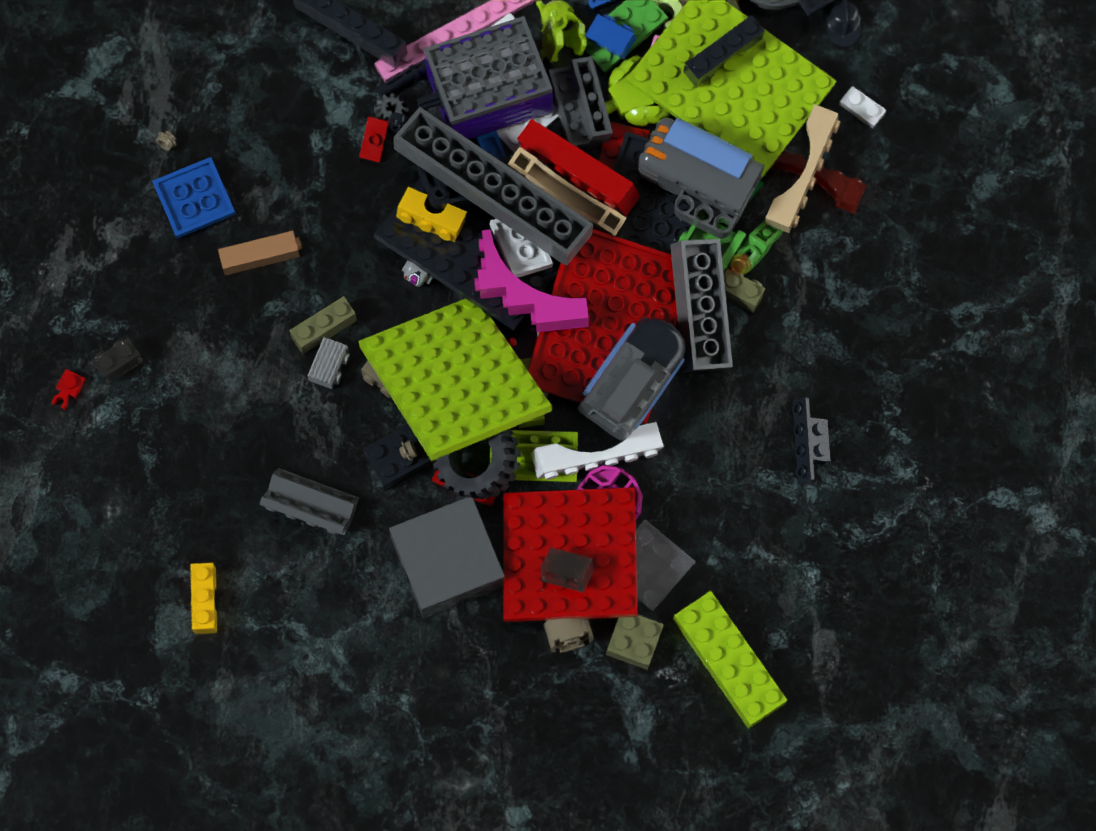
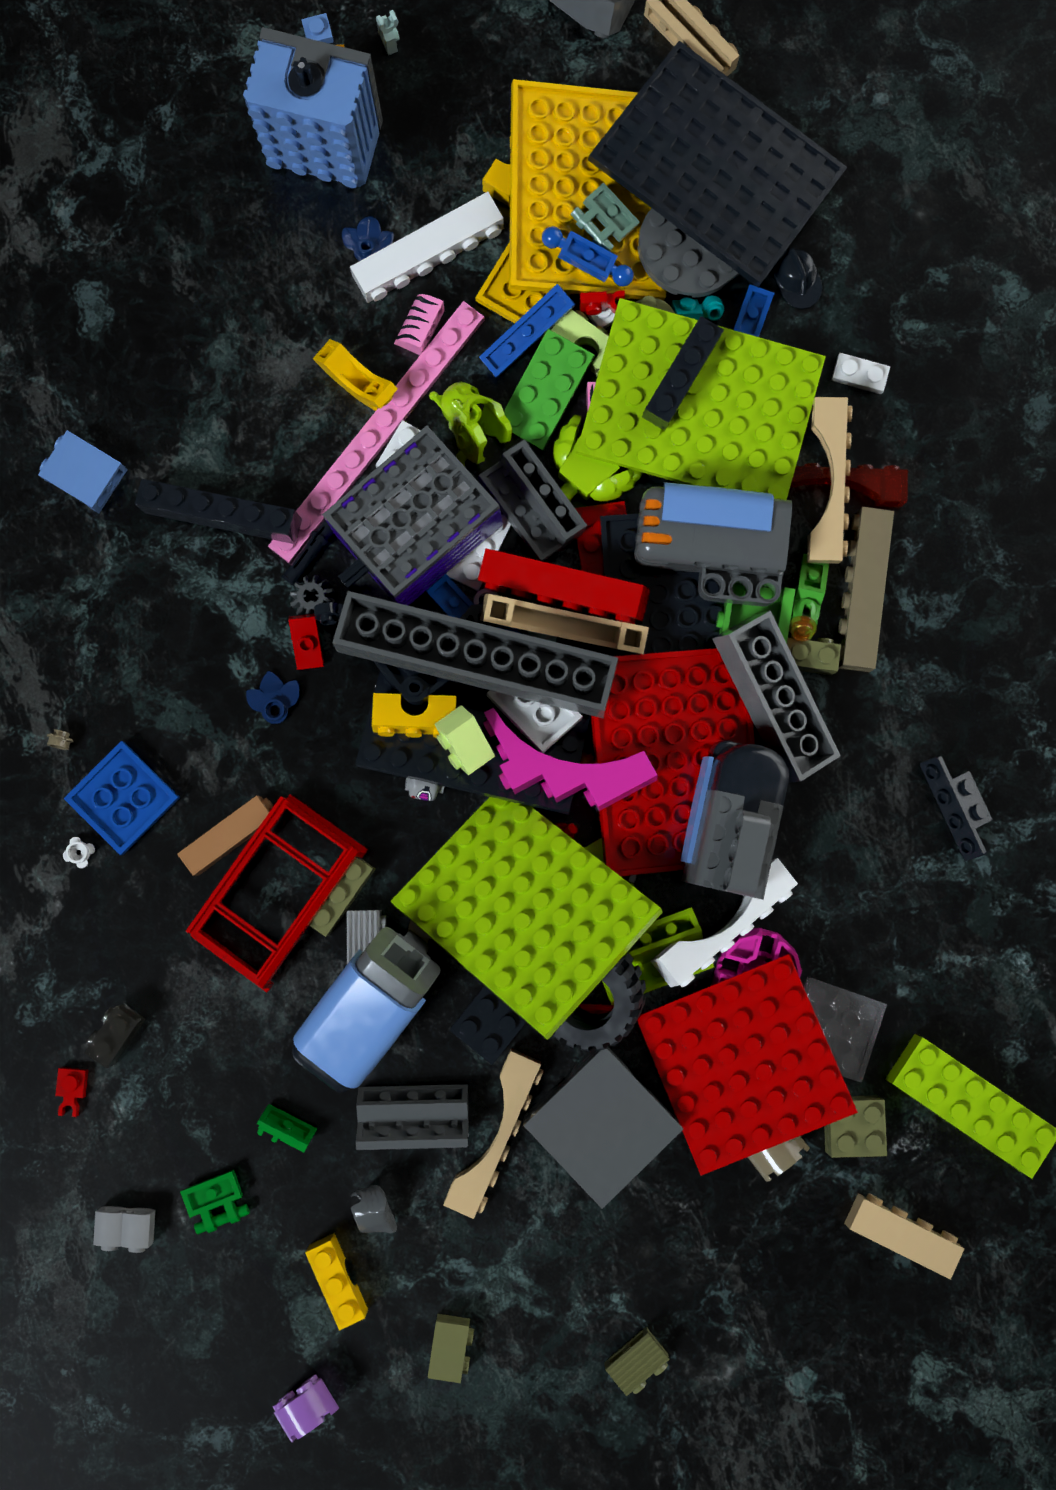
camera: 20 degrees left, 10 degrees up
(65, 499) = (124, 1228): none -> light grey brick
(138, 502) = (212, 1194): none -> green plate
(142, 676) = (306, 1409): none -> medium lavender brick
(145, 218) = (76, 844): none -> white plate
(213, 475) = (286, 1128): none -> green plate
(252, 556) = (373, 1211): none -> dark grey hair
(266, 680) = (449, 1348): none -> olive brick
(304, 319) = (330, 880): none -> red piece
(308, 402) = (365, 1009): none -> medium blue piece
(332, 569) = (470, 1185): none -> tan arch
(333, 168) = (271, 694): none -> dark blue plate
(401, 746) = (637, 1362): none -> olive brick
(408, 450) = (505, 1016): dark tan plate -> none
(459, 243) = (464, 740): none -> yellowish green brick
(567, 569) = (756, 1095): clear smoke brick -> none
(611, 36) = (537, 405): blue brick -> none
(638, 734) = (903, 1235): none -> tan brick
(769, 19) = (710, 308): none -> teal plate
(800, 33) = (753, 311): none -> blue plate
(801, 260) = (865, 588): none -> dark tan brick

